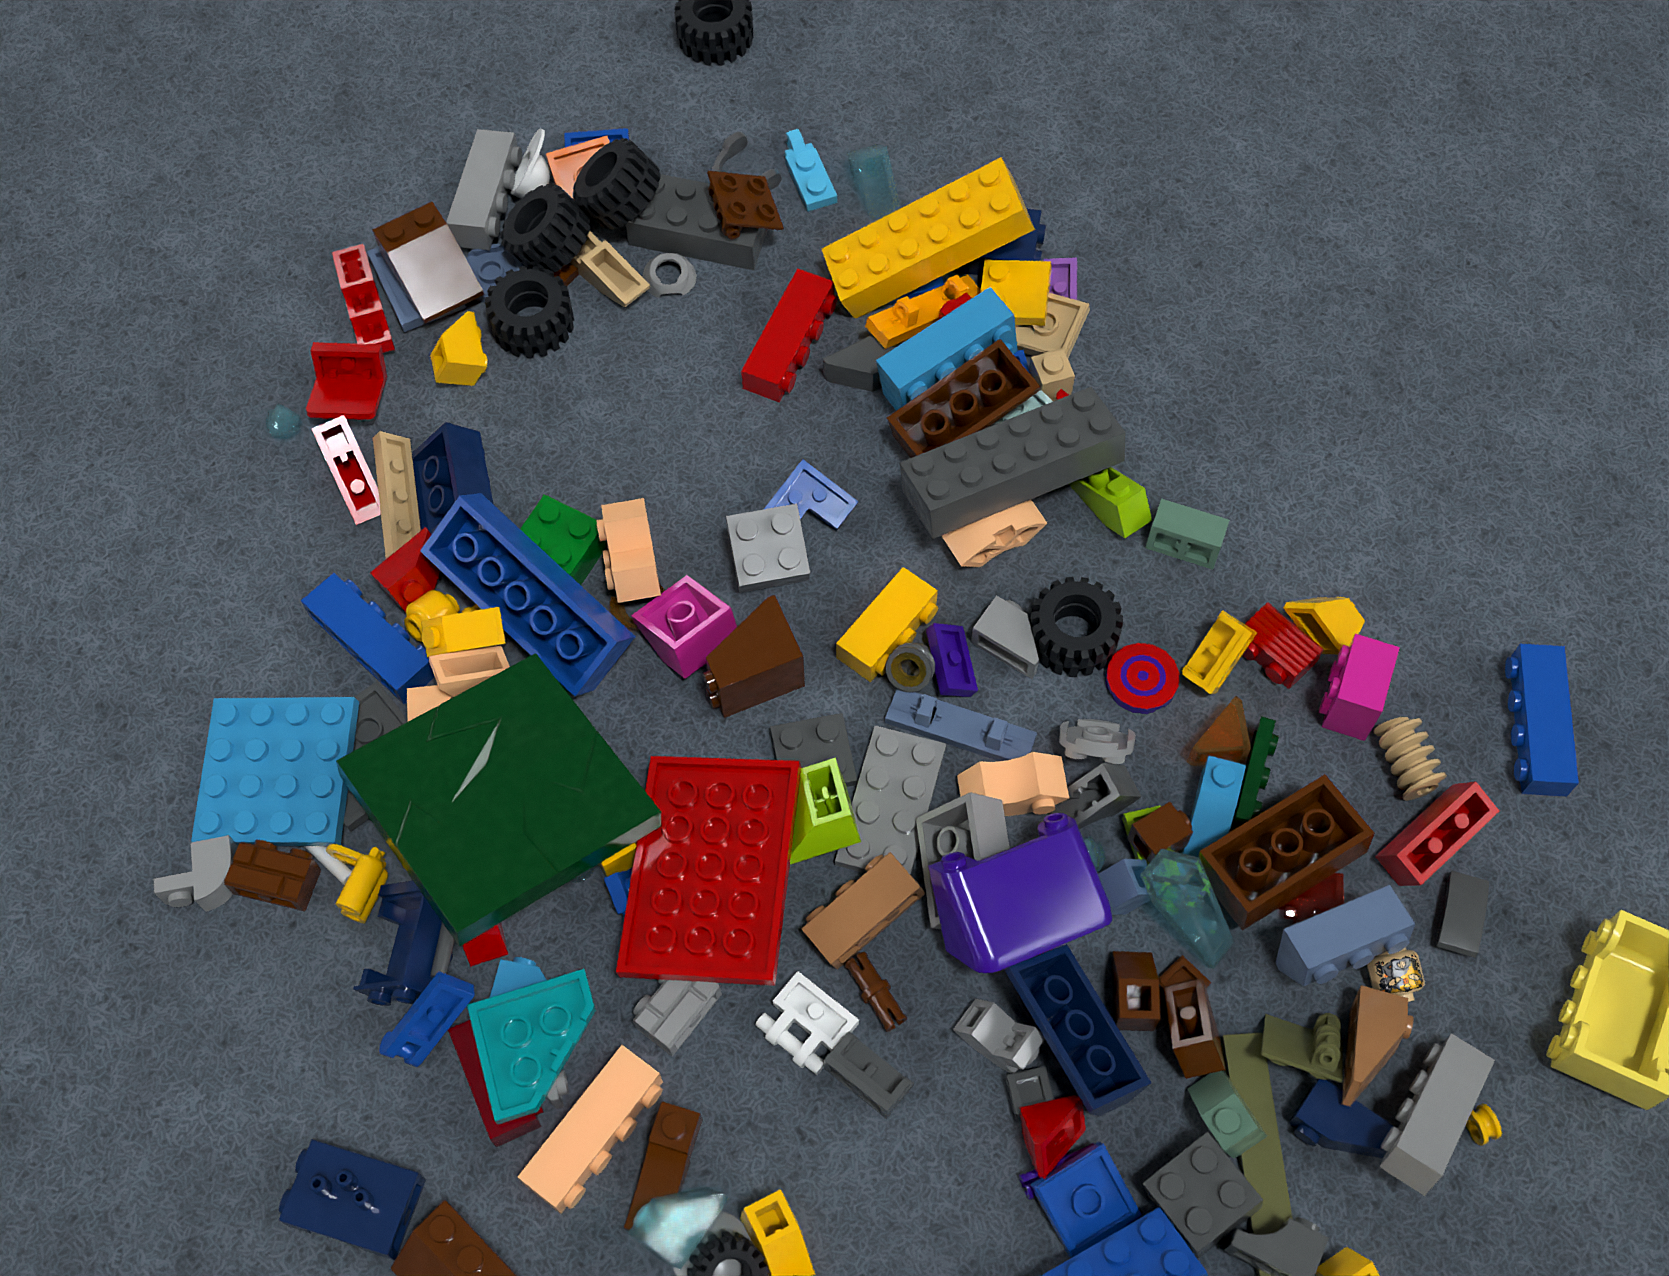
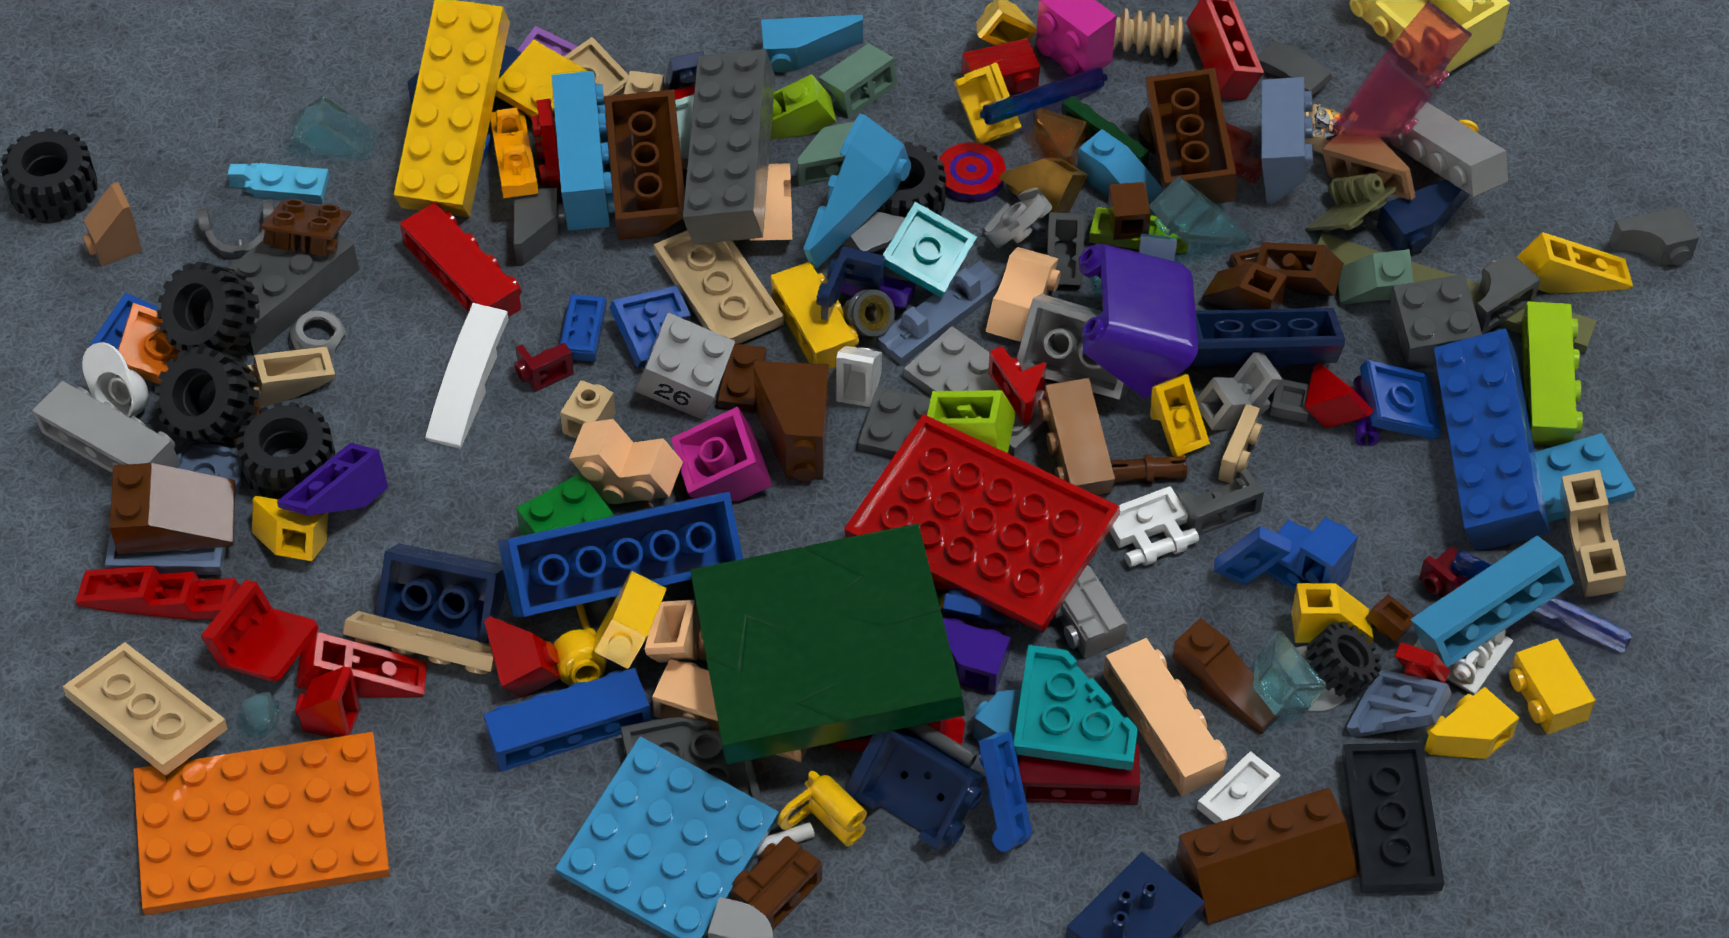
camera: 65 degrees left, 10 degrees down
(189, 476) = (260, 823): none -> orange plate
(245, 344) = (145, 708): none -> tan plate
(301, 465) = (329, 704): none -> red slope
(506, 361) = (342, 483): none -> dark purple slope
(540, 1235) = (1239, 789): none -> white plate
(581, 928) = (977, 654): none -> dark purple slope
(675, 394) = (466, 376): none -> white slope
(684, 88) = (111, 228): none -> medium nougat slope
(688, 501) = (586, 405): none -> tan brick
(718, 448) = (545, 368): none -> dark red bracket
(777, 454) = (584, 326): none -> blue plate
(802, 598) = (738, 378): none -> reddish brown plate
(803, 1132) = (1252, 555): none -> blue plate
(832, 1189) = (1315, 555): none -> blue brick
(841, 687) = (857, 375): none -> white slope
(874, 540) = (719, 287): none -> tan plate
(887, 831) = (1019, 386): none -> red slope
(927, 617) = (852, 268): none -> dark blue bracket
(942, 992) = (1180, 416): none -> yellow slope
(963, 1064) = (1236, 455): none -> tan plate
(1005, 680) = (928, 249): none -> plate
(1036, 584) = (868, 177): none -> dark azure wedge
(1083, 551) = (822, 155): none -> sand green slope
(1084, 381) = (682, 71): none -> dark blue plate
(1159, 748) = (1052, 176): none -> pearl gold slope
(1201, 467) = (806, 40): none -> dark azure slope
(1257, 696) = (1043, 96): none -> clear blue axle
(1488, 1025) = (1403, 76): none -> clear pink windscreen

